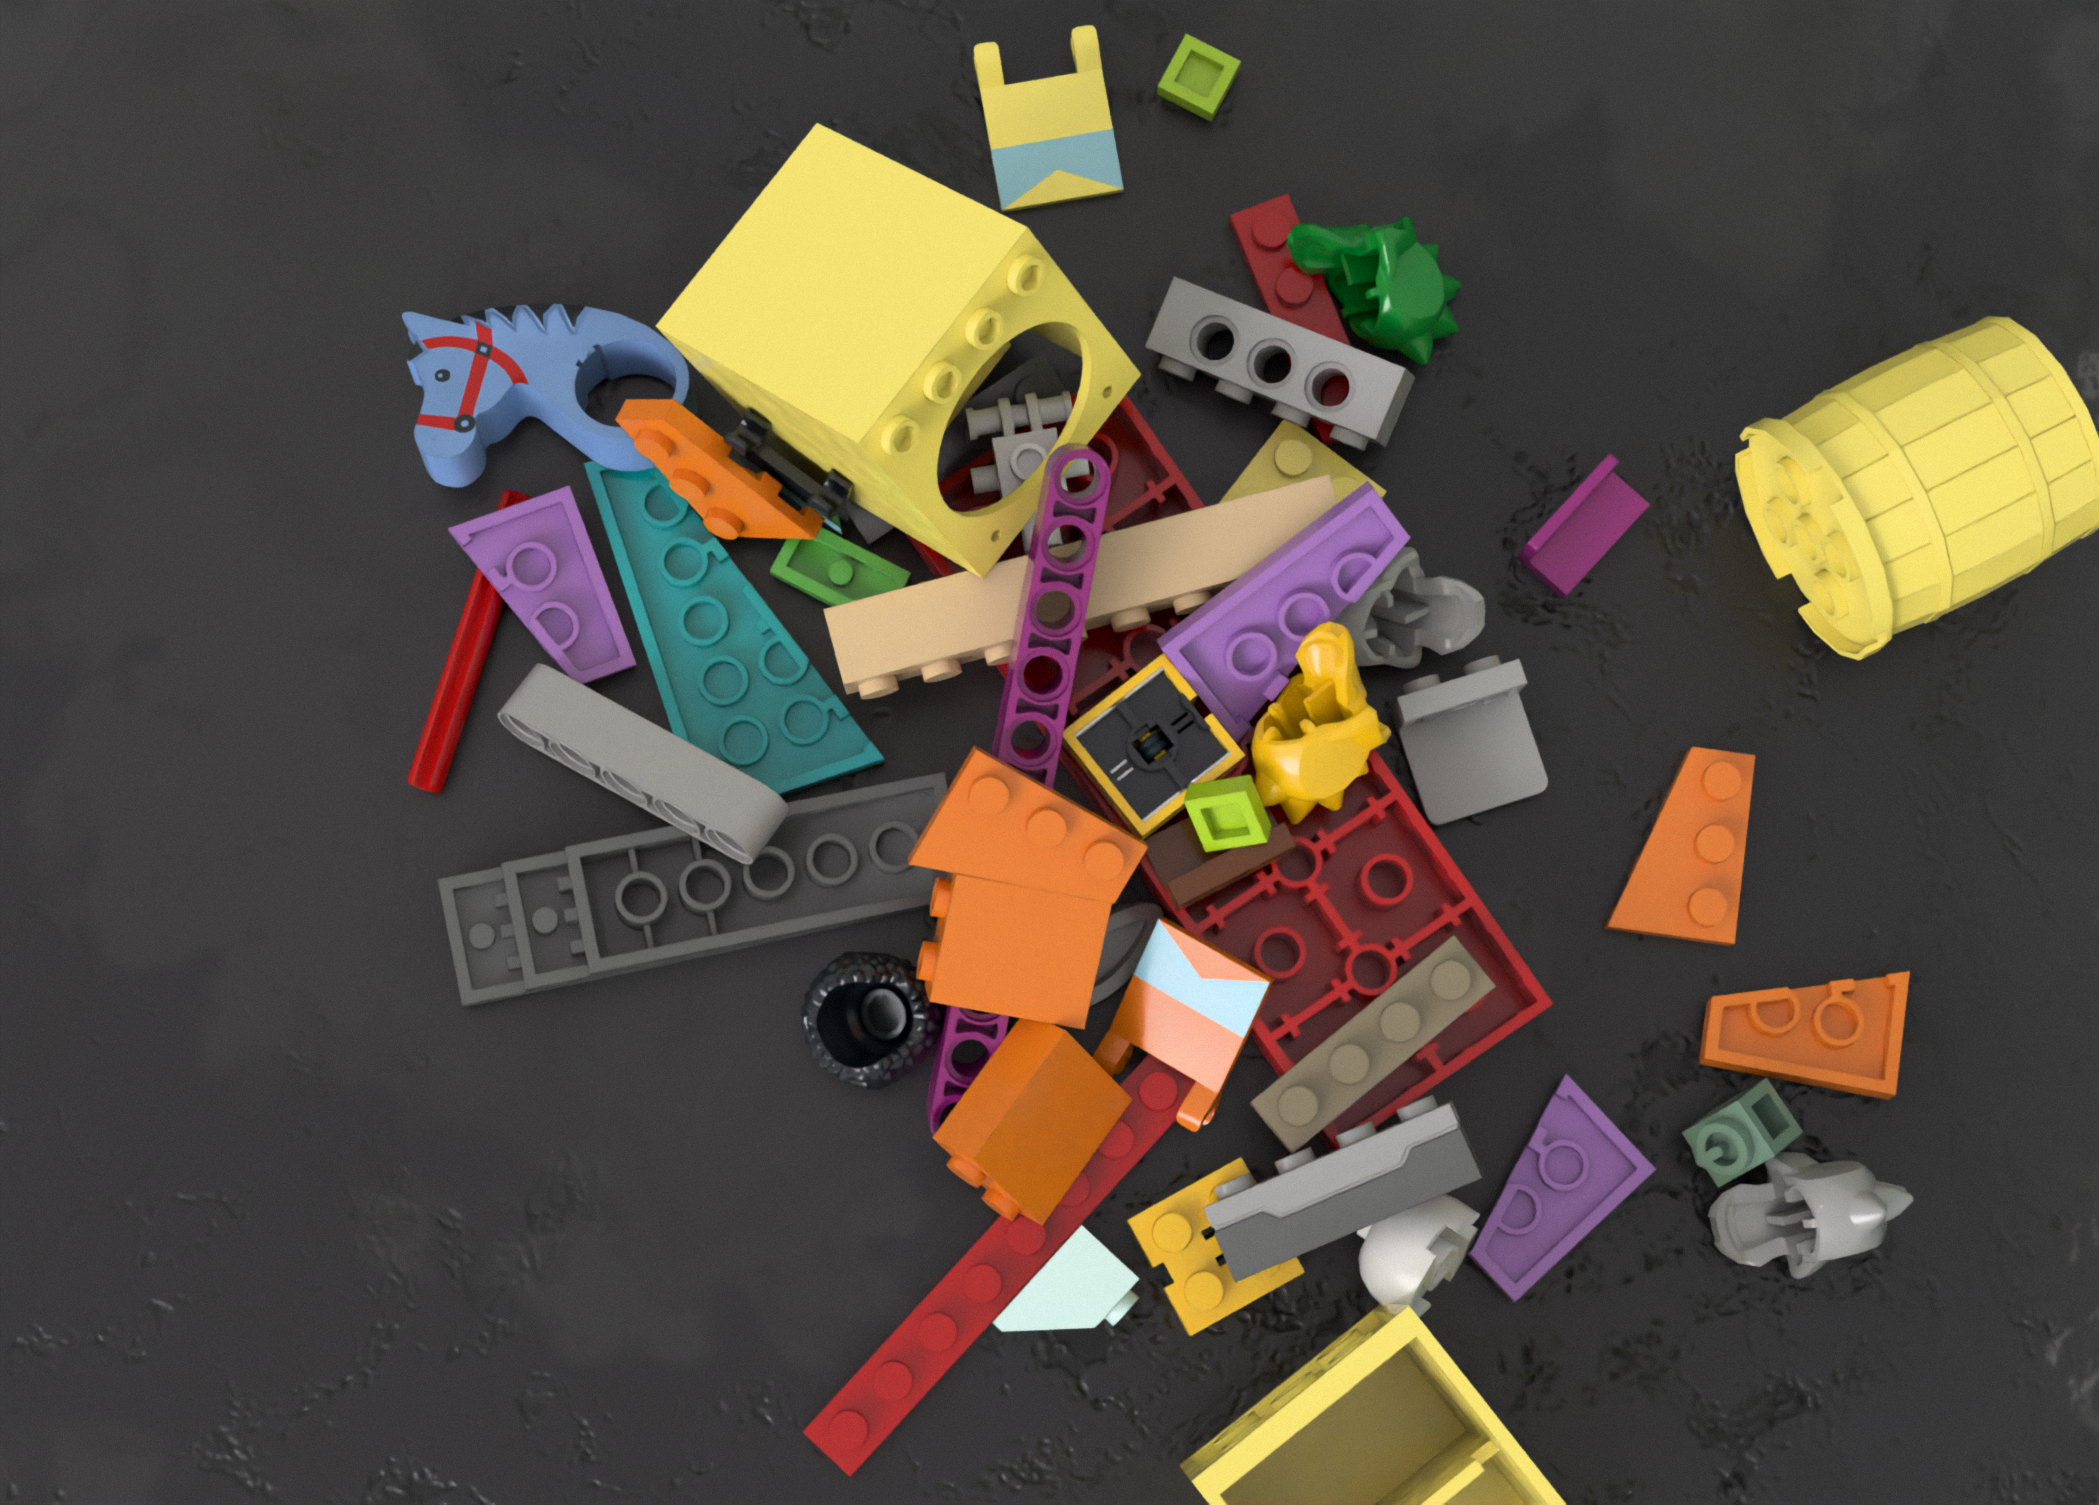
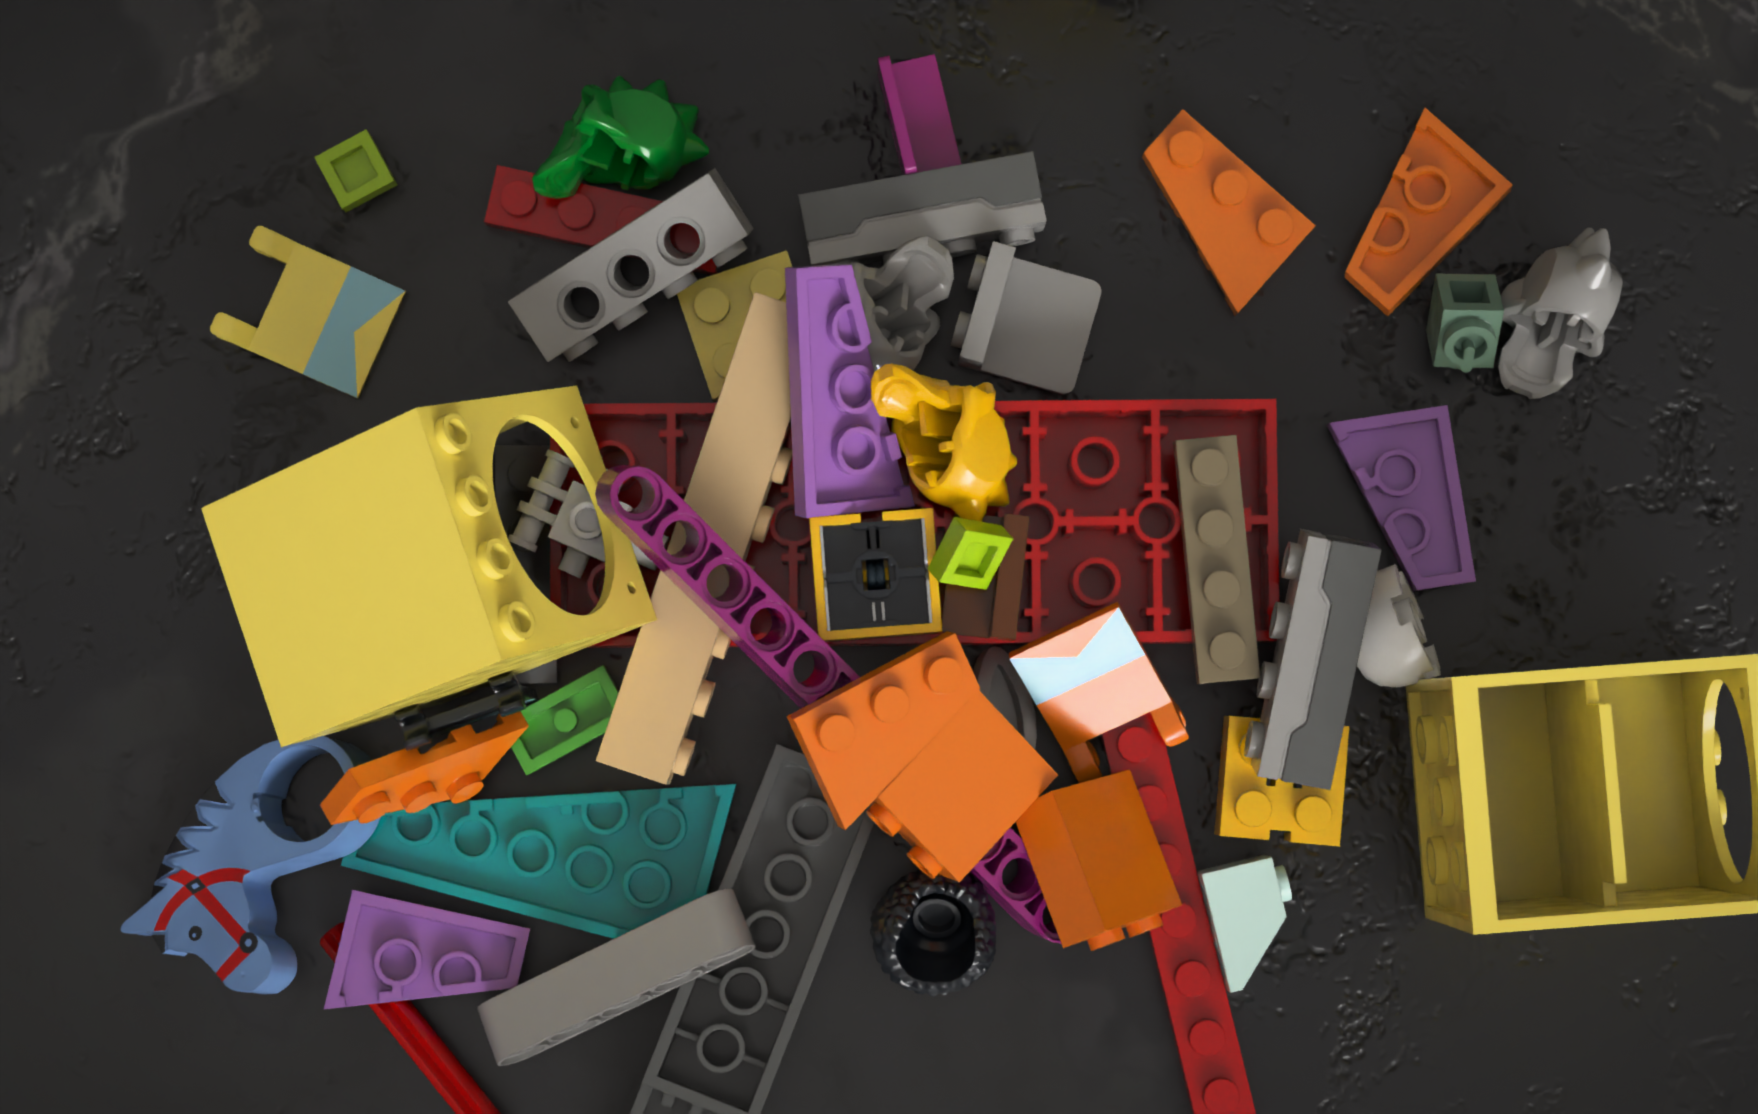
camera: 55 degrees left, 5 degrees up
(1525, 603) = (949, 204): none -> piece

